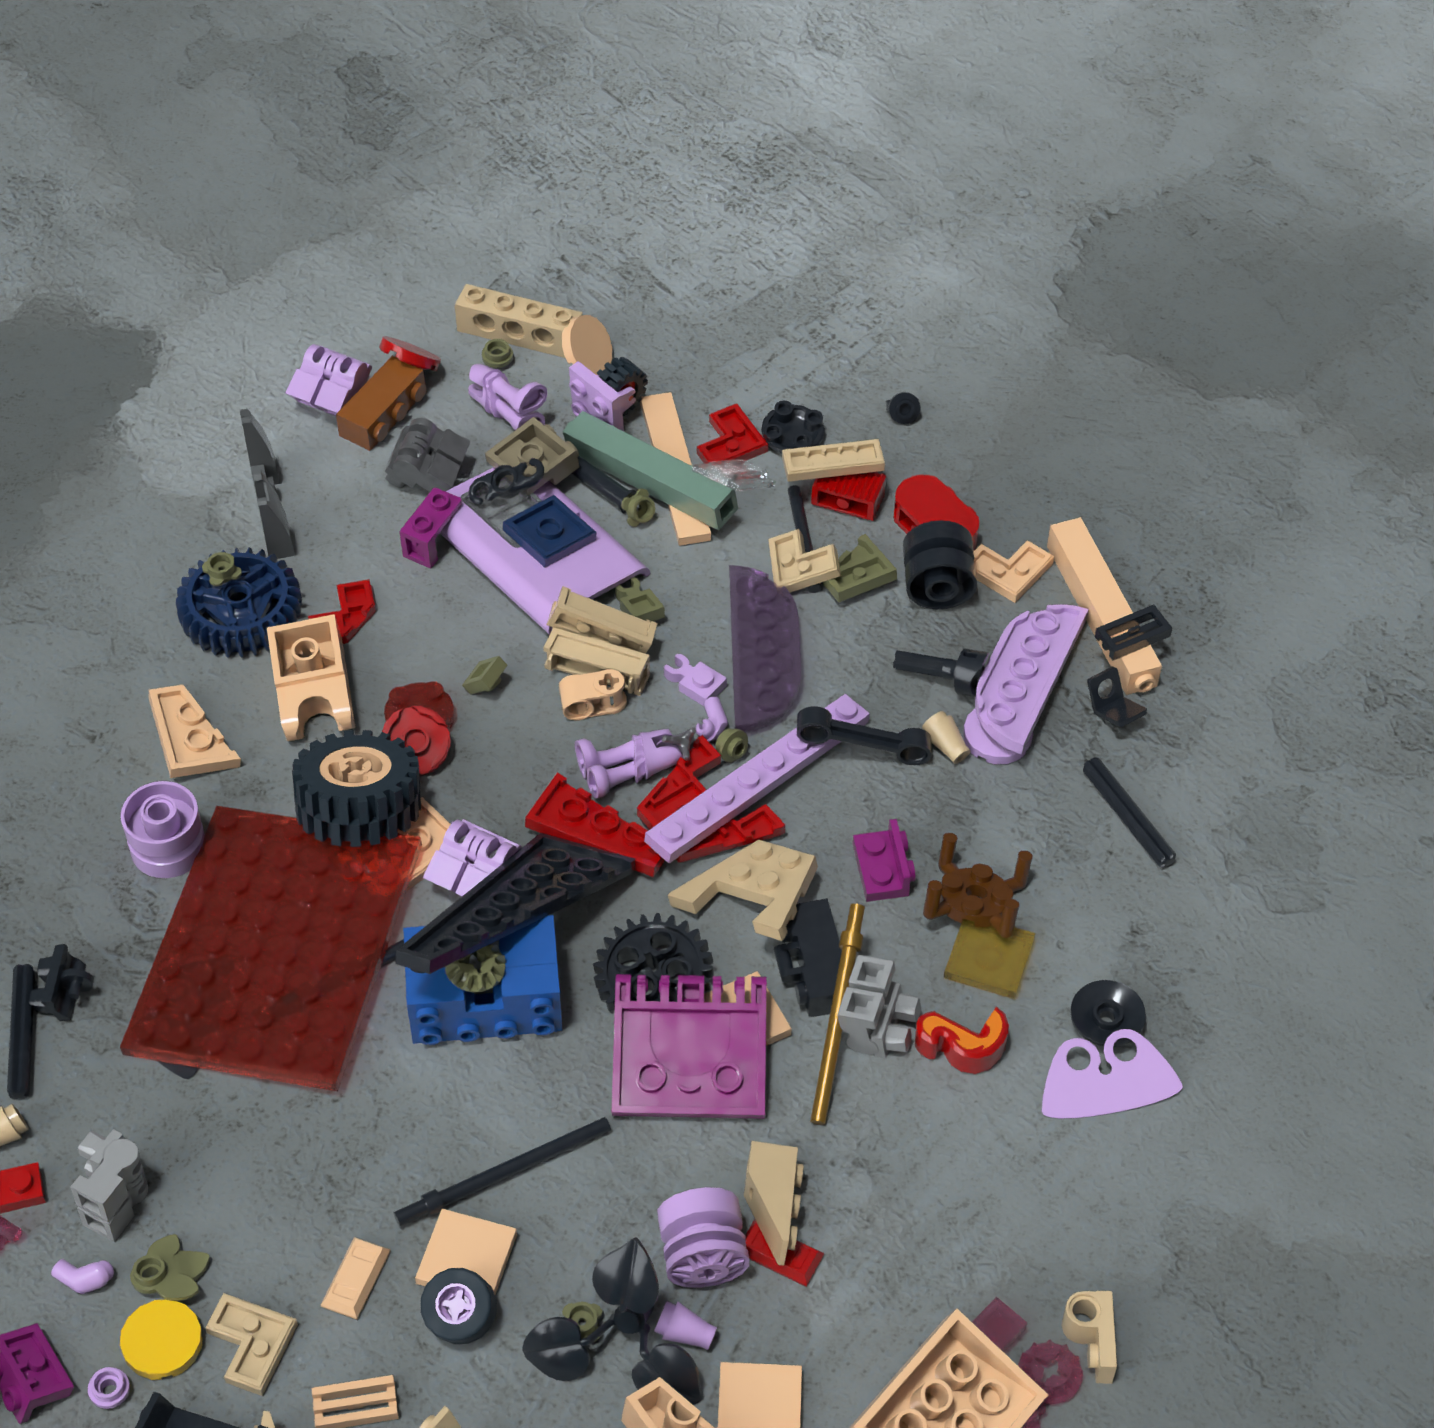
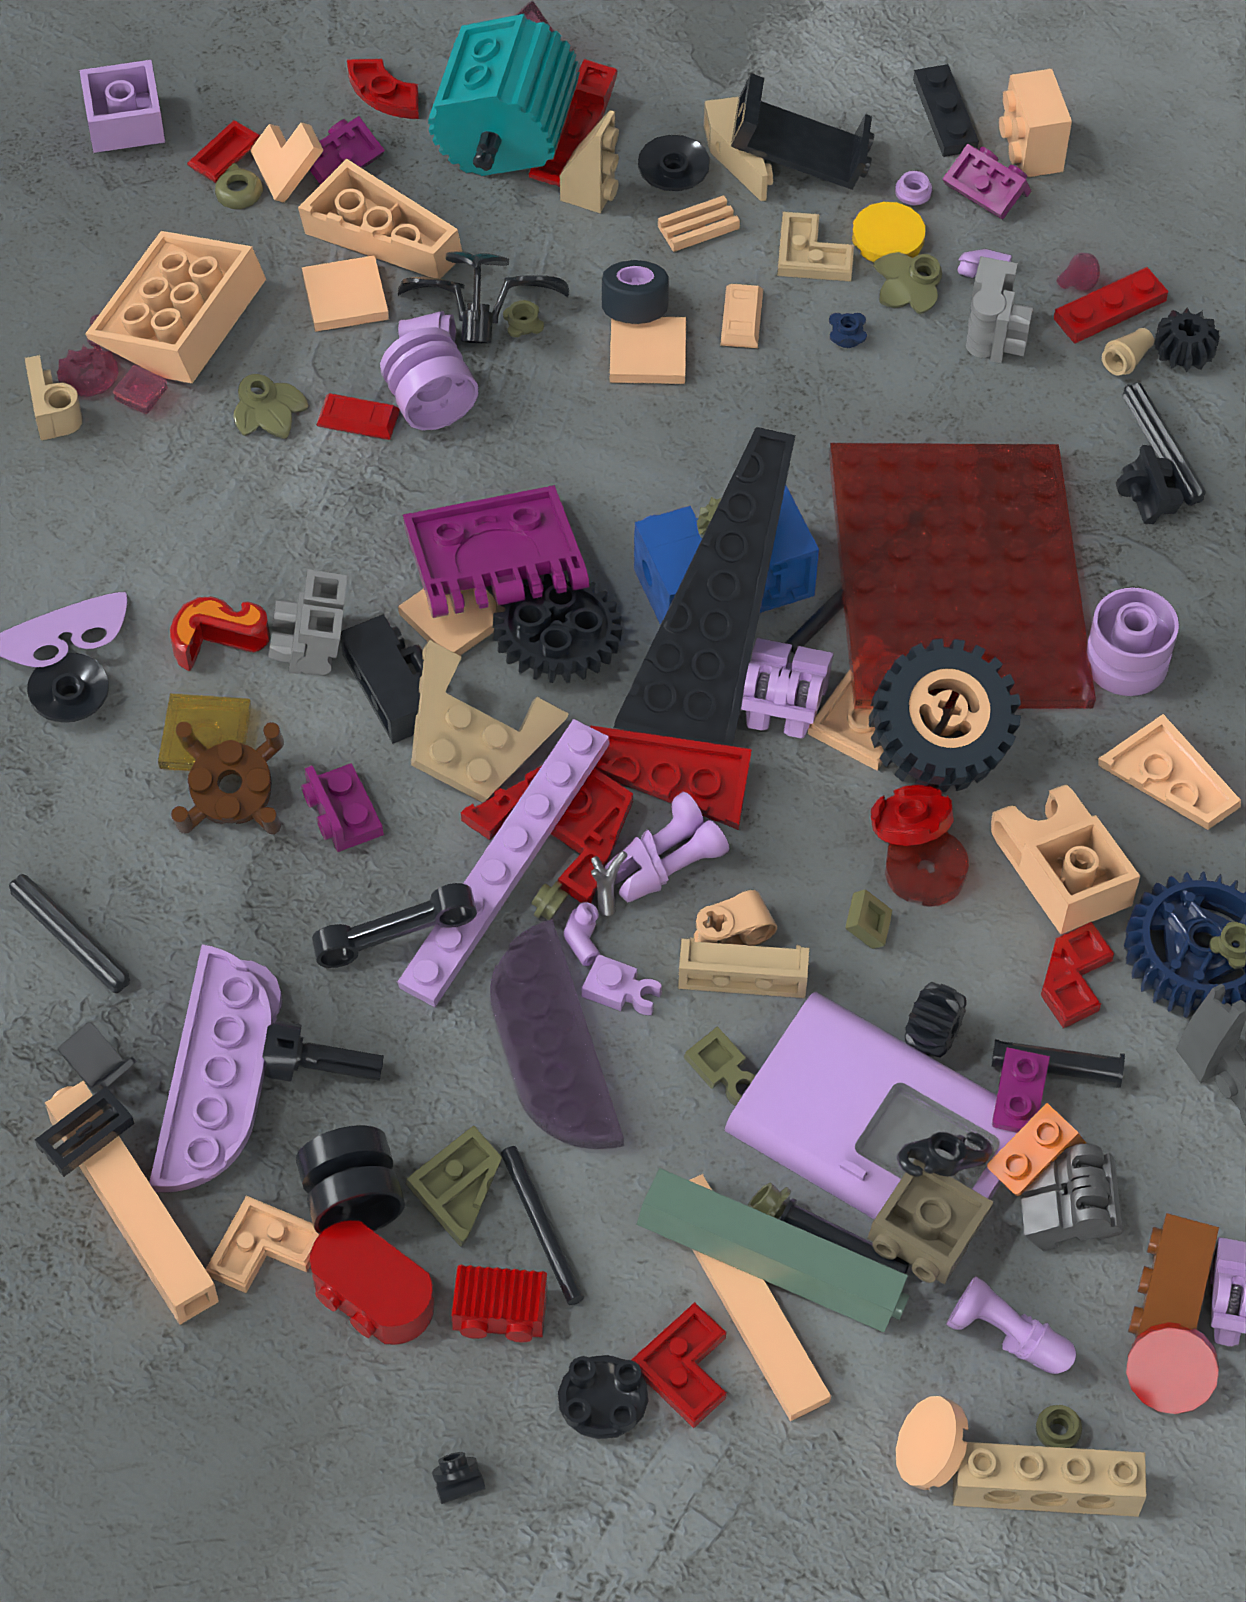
camera: 165 degrees right, 5 degrees up
(261, 1237) = (847, 329): none -> dark blue plate
(386, 554) = (1069, 1062): none -> black pin
(427, 476) = (1033, 1149): none -> orange bracket
(434, 1201) = (693, 384): black bar -> none
(468, 584) = (935, 1019): none -> black gear
(549, 531) = (865, 1117): dark blue tile -> none
(600, 622) = (751, 995): tan container -> none
(609, 392) = (871, 1349): lavender plate -> none
(735, 474) = (653, 1255): clear piece -> none
(770, 1195) = (378, 441): tan slope -> none
(799, 569) = (540, 1161): tan tile -> none
(833, 460) = (525, 1298): tan plate -> none
(850, 943) = (350, 652): pearl gold bar -> none
(870, 1280) = (268, 410): none -> olive plate
(946, 736) = (301, 973): tan cone -> none

